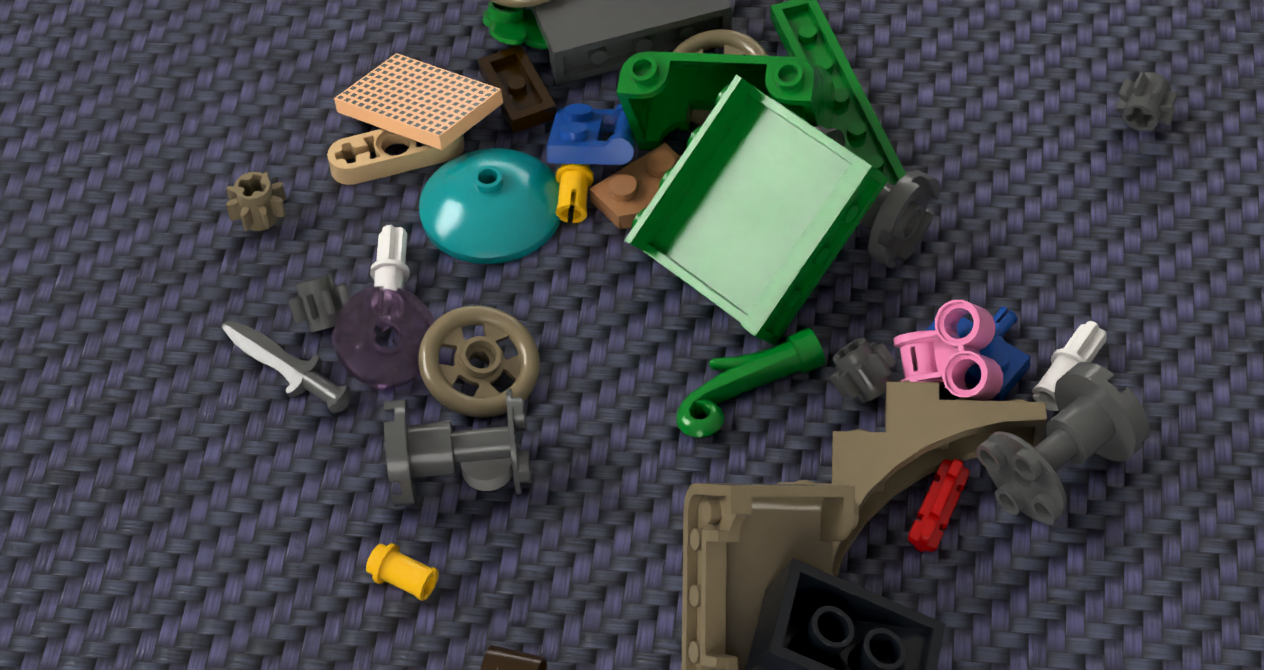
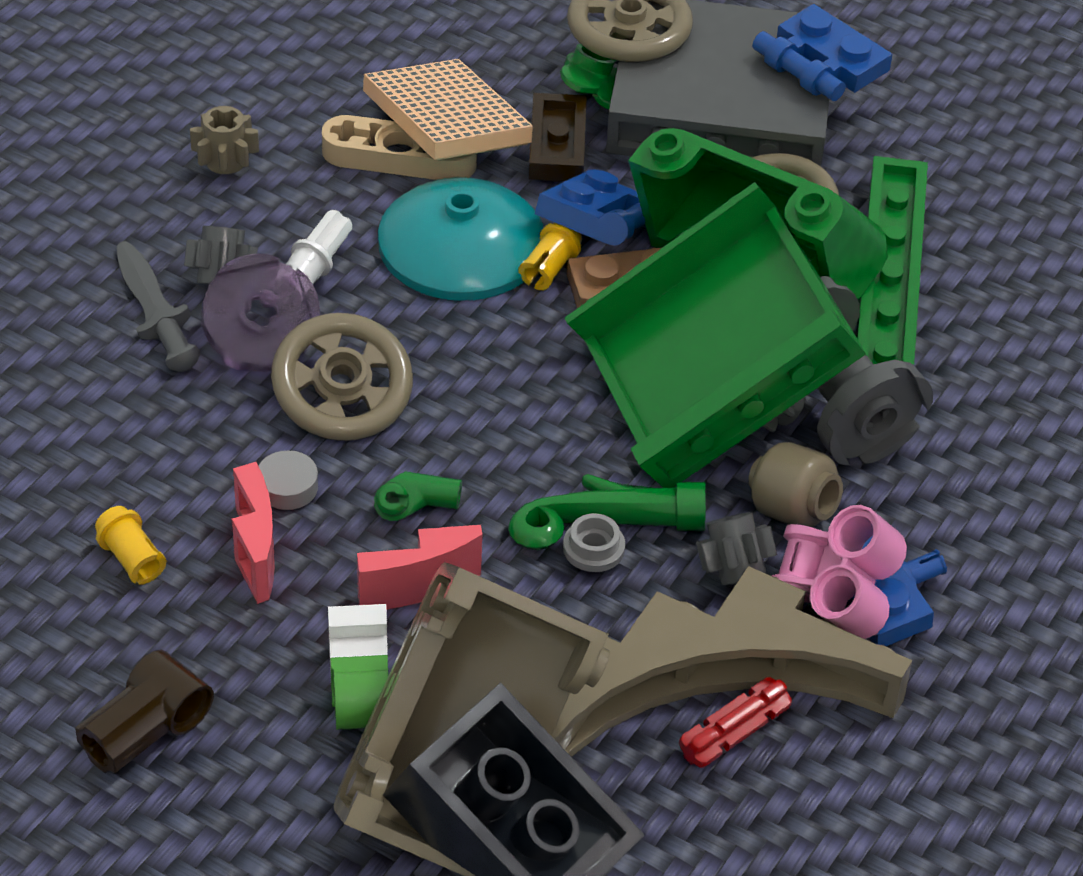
camera: 20 degrees right, 5 degrees down
(436, 448) = (208, 429): dark grey piece -> none
(500, 522) = (253, 531): none -> coral slope
(590, 431) = (414, 491): none -> green arm
(641, 589) = (357, 661): none -> leg
(648, 482) = (404, 575): none -> coral slope
(752, 401) = (594, 543): none -> light grey plate
(873, 301) = (795, 485): none -> dark tan head
(1080, 348) = (974, 642): white axle -> none
(1089, 421) = (947, 701): dark grey piece -> none

